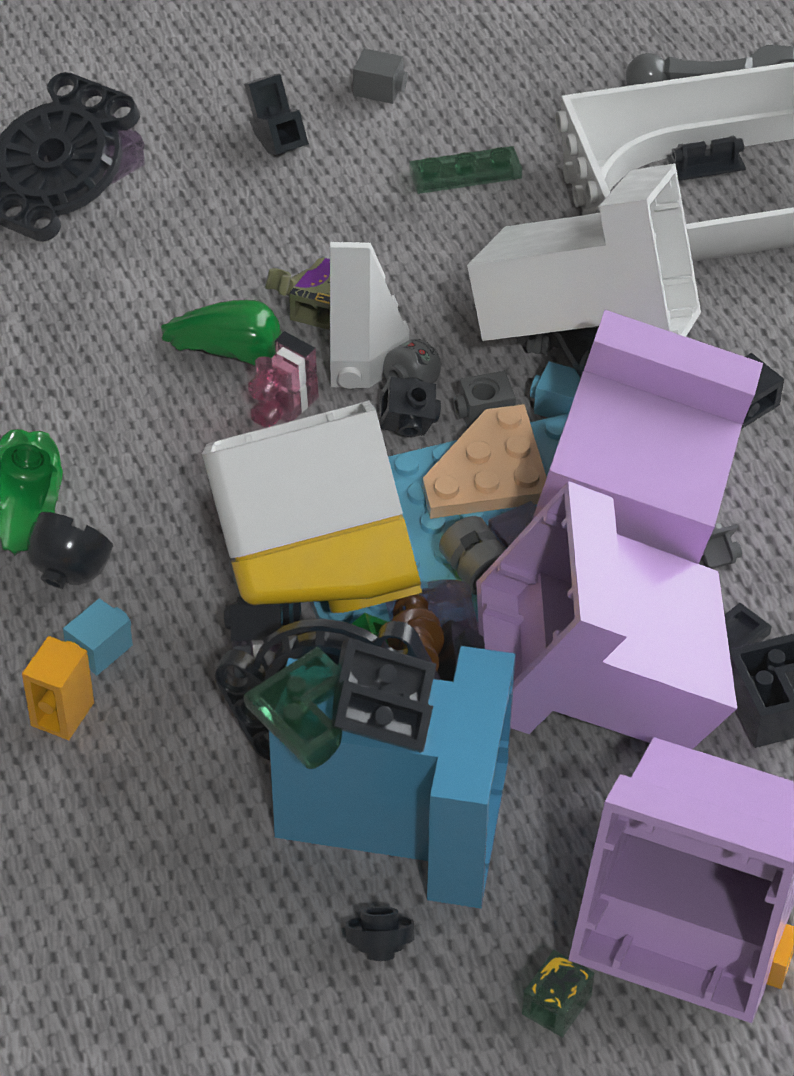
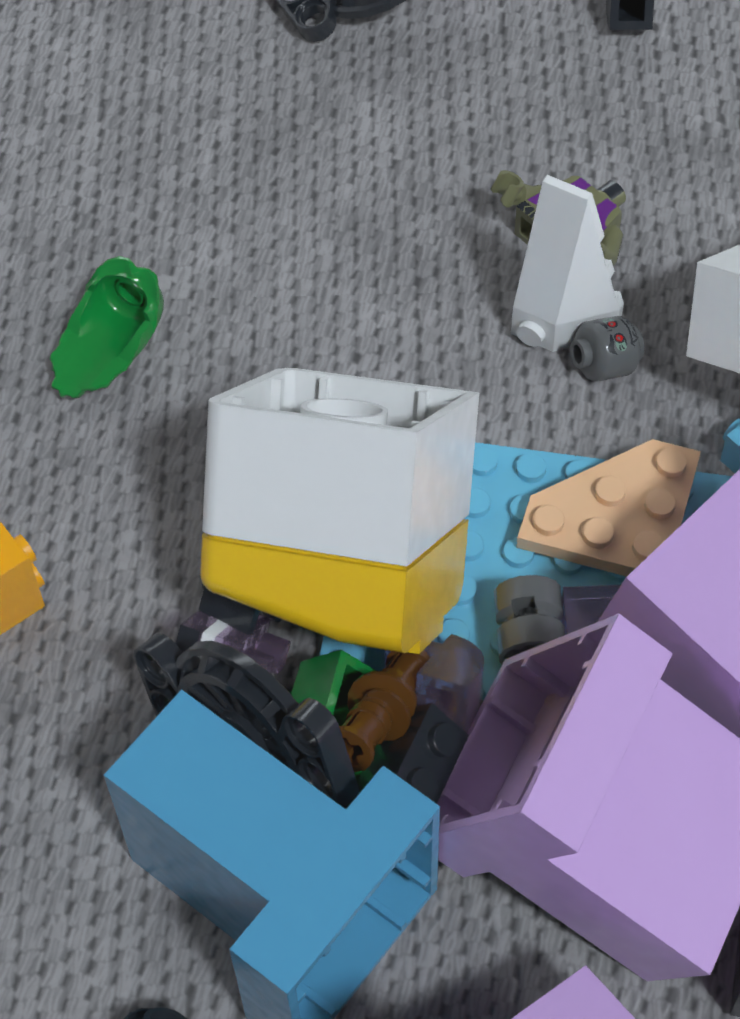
camera: 30 degrees right, 10 degrees up
(66, 551) = (105, 420): black cylinder -> none
(102, 632) = (86, 532): medium azure brick -> none
(226, 329) = (435, 224): green hair -> none
(284, 382) = (447, 313): clear pink hips -> none
(290, 707) = (128, 754): clear green brick -> none
(383, 695) = (237, 800): black slope -> none
(408, 406) = (572, 398): black brick -> none
(482, 393) = (674, 410): dark grey brick -> none

